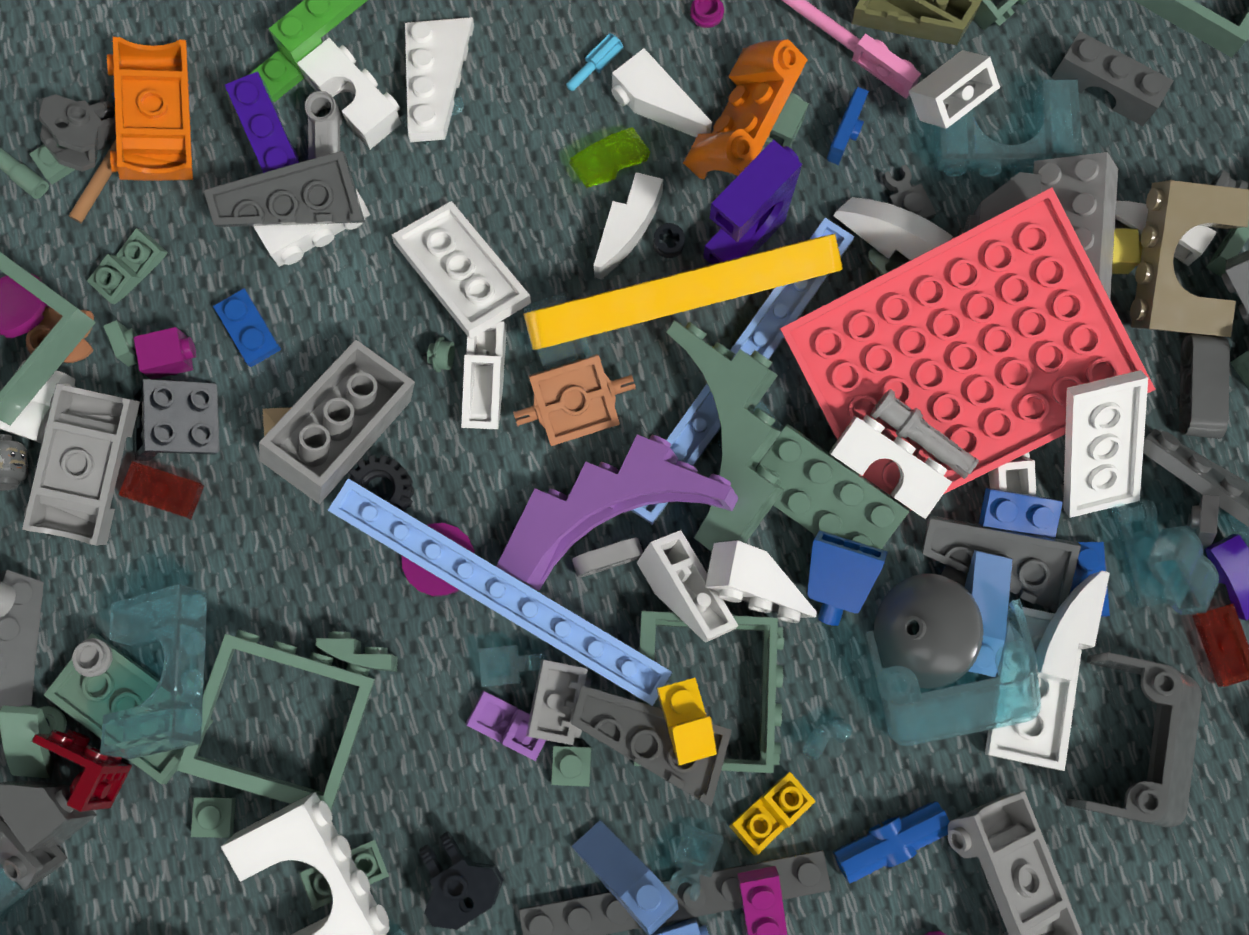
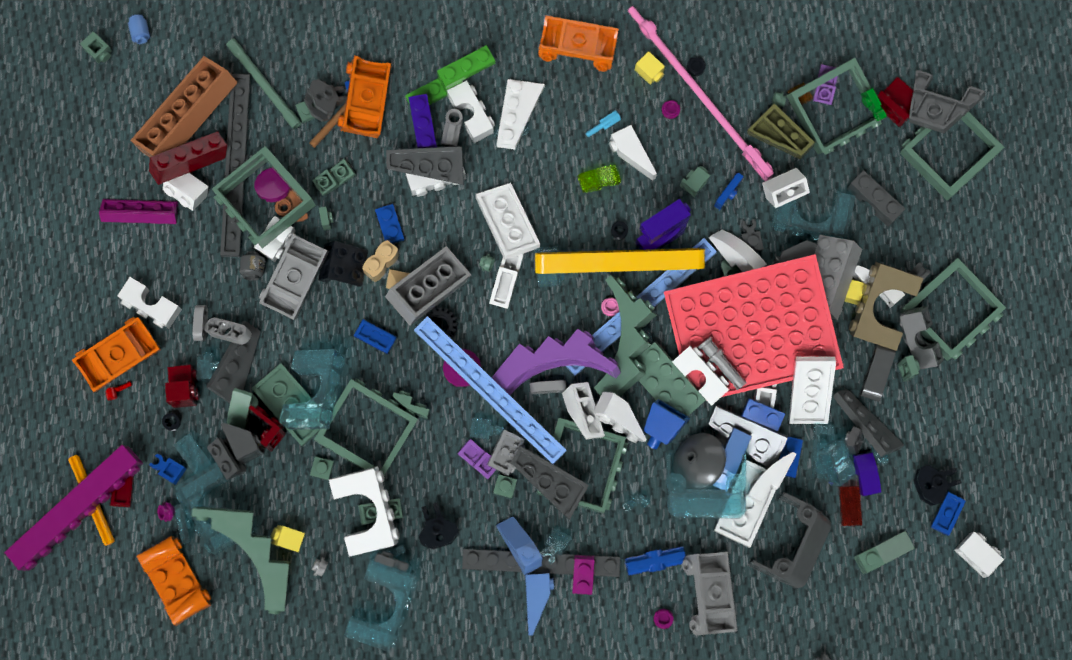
camera: 10 degrees right, 0 degrees up
(92, 657) = (280, 375): light grey plate -> none
(161, 490) = (329, 299): clear red plate -> none
(164, 353) = (346, 228): magenta brick -> none
(245, 391) = (377, 264): none -> tan brick
(262, 540) = (375, 336): none -> blue plate
(574, 400) = (550, 303): nougat plate -> none
(627, 223) = (600, 216): white slope -> none
(686, 381) = (610, 307): none -> bright pink plate
(687, 721) = (567, 475): yellow slope -> none
(764, 82) = (689, 159): orange piece -> none
(772, 813) = (599, 533): yellow slope -> none

